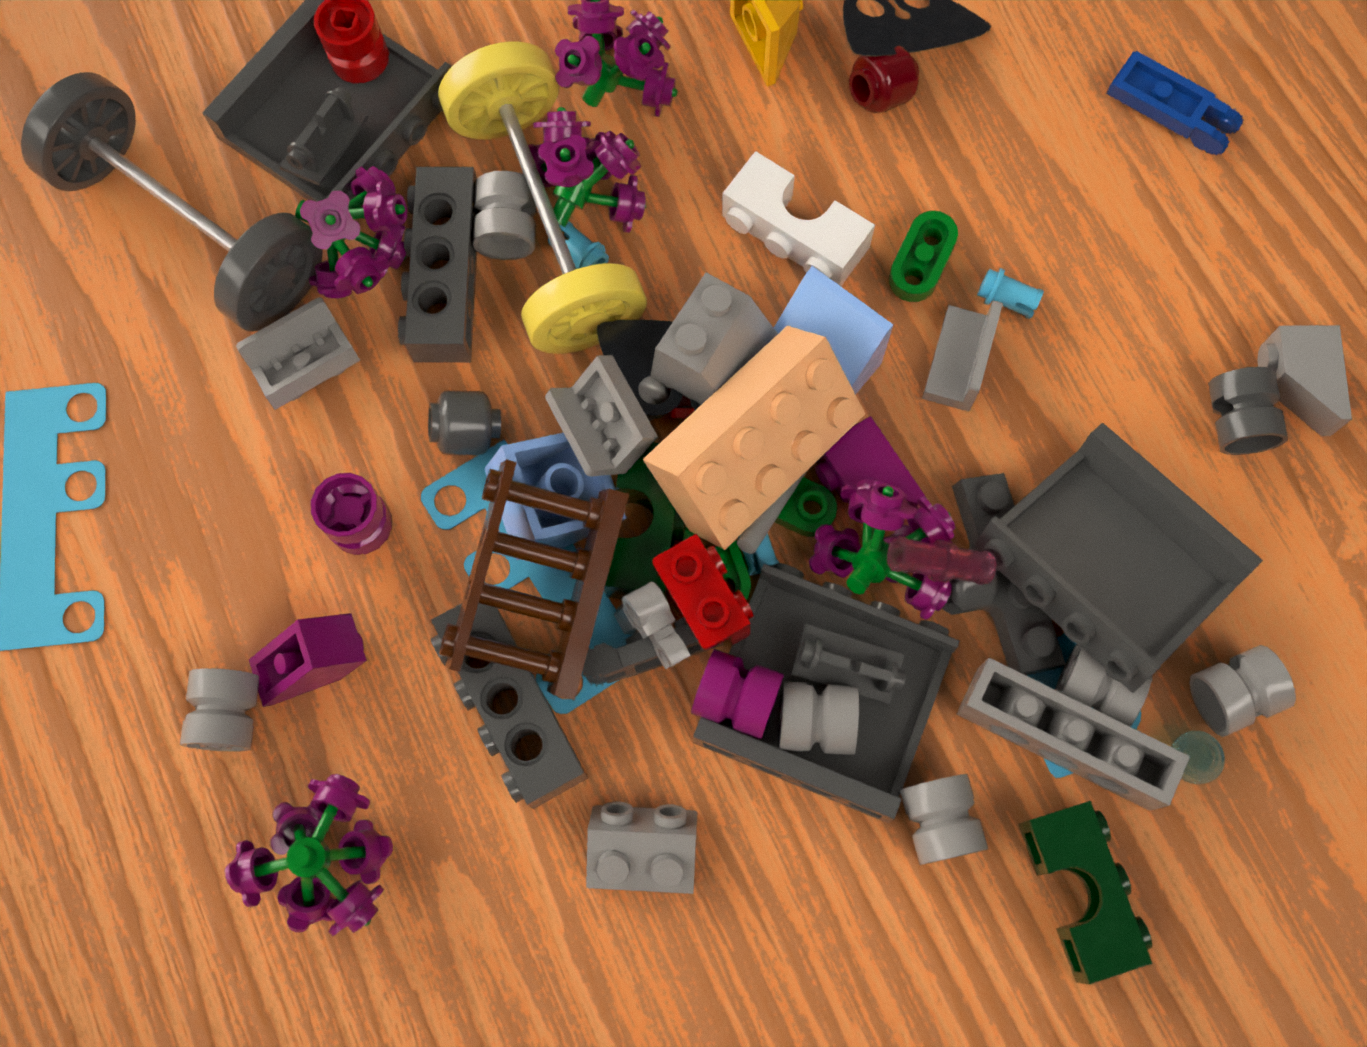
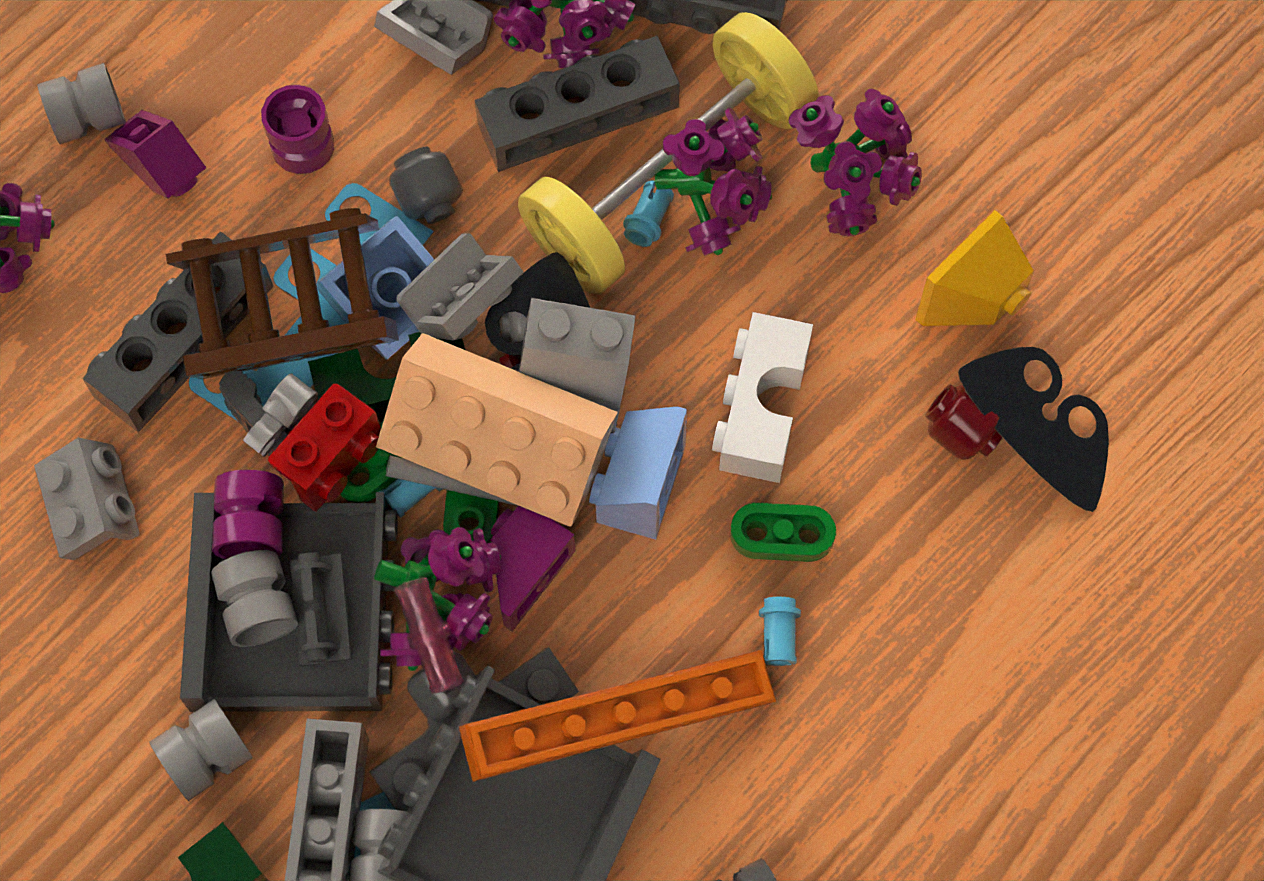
camera: 65 degrees right, 5 degrees down
(506, 214) = (640, 134): light grey wheel -> none
(961, 356) = (690, 608): light grey panel -> none
(1058, 445) = (615, 715): none -> orange tile
(1175, 103) = (1083, 721): blue hinge -> none

